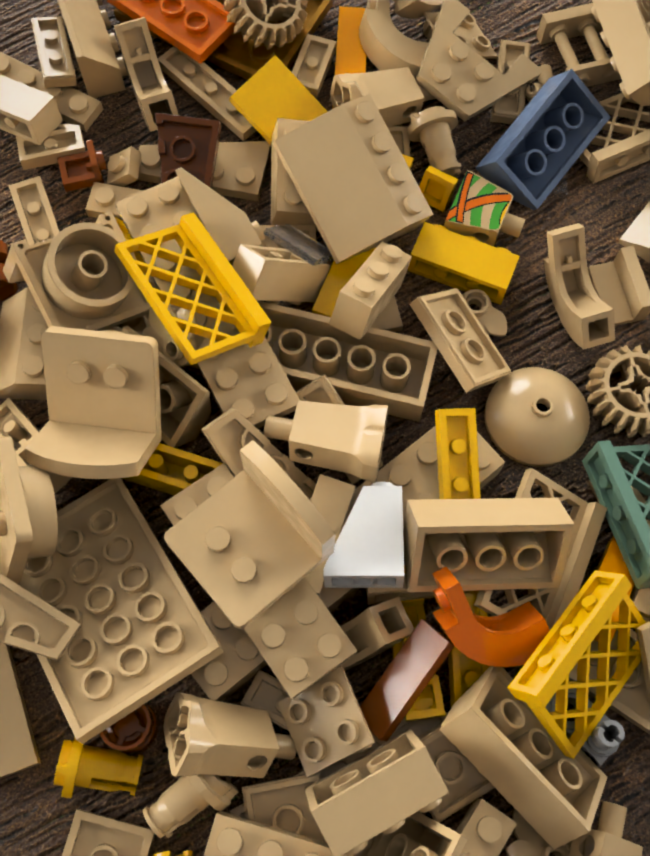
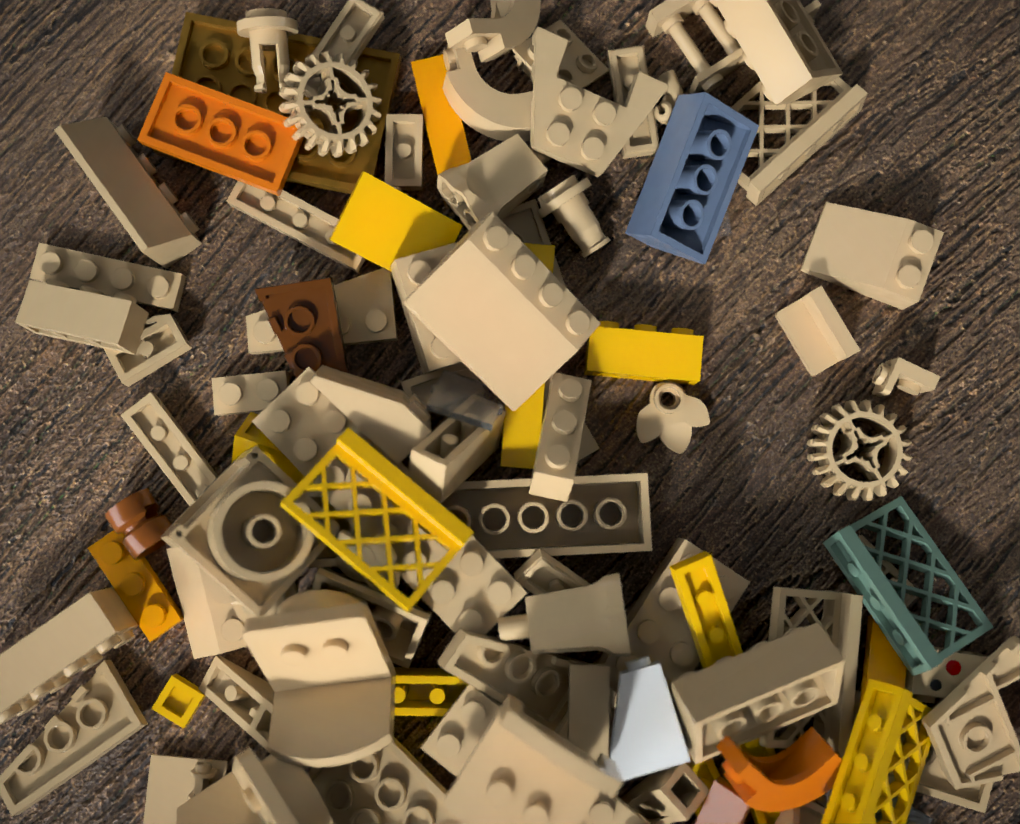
camera: 15 degrees left, 15 degrees up
(53, 52) = (104, 230): tan tile -> none
(82, 168) = (193, 367): dark orange bracket -> none
(124, 167) = (238, 352): tan plate -> none
(144, 71) = (224, 232): tan arch -> none
(438, 188) = (590, 272): yellow tile -> none
(460, 339) = (667, 456): tan tile -> none
(482, 211) = (646, 287): torso -> none
(524, 430) = (739, 509): tan dish -> none
(578, 306) = (771, 359): tan arch -> none

